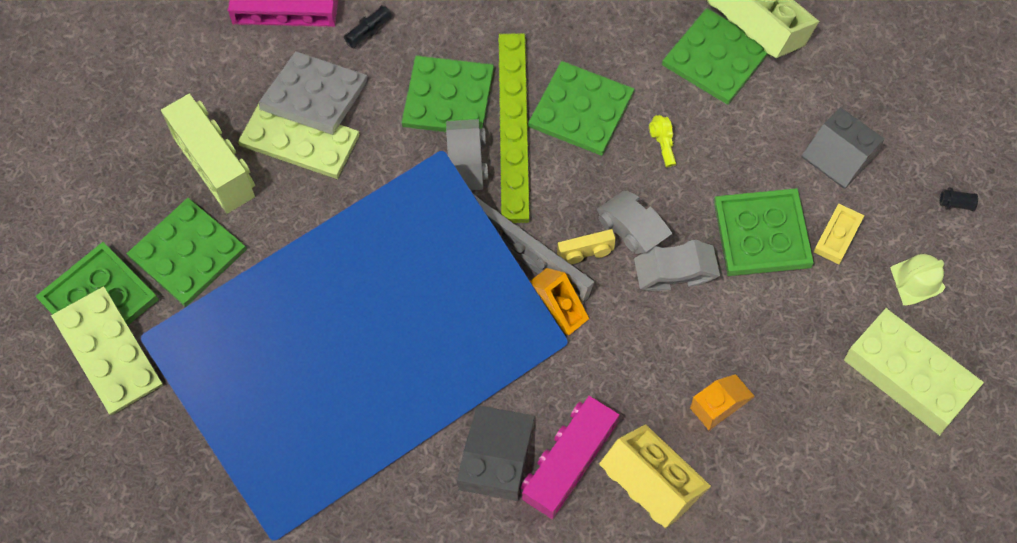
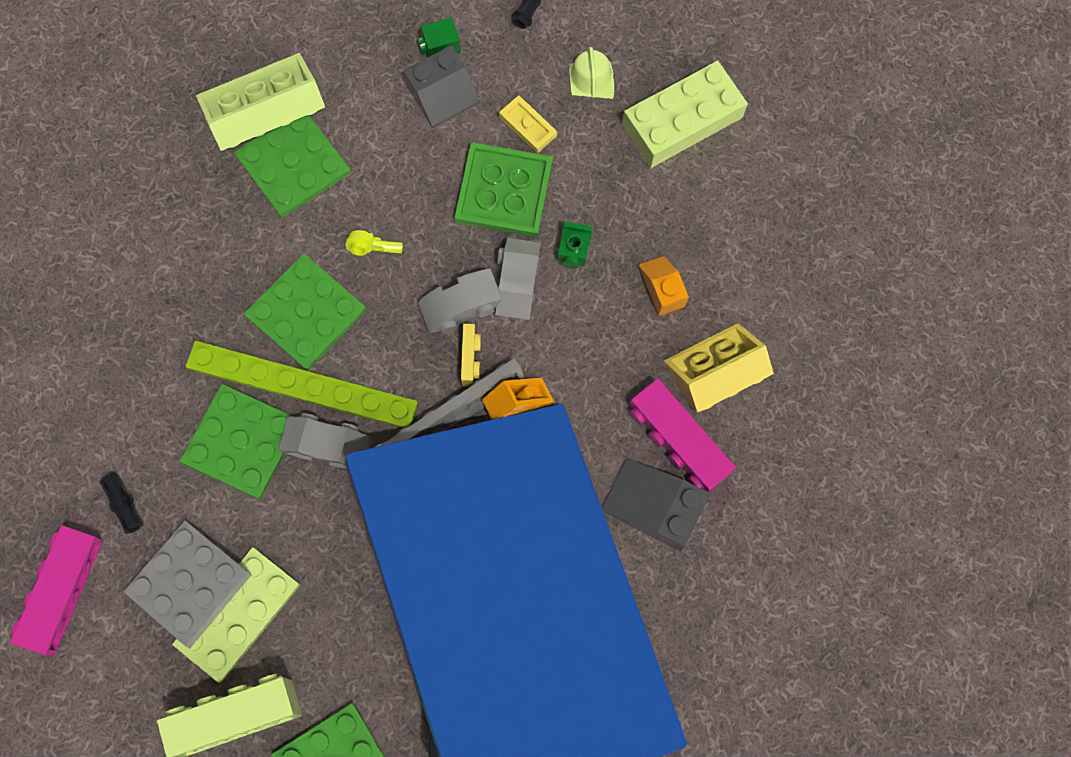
camera: 80 degrees left, 10 degrees up
(726, 316) = (575, 233): none -> green brick
(894, 130) = (439, 36): none -> green brick

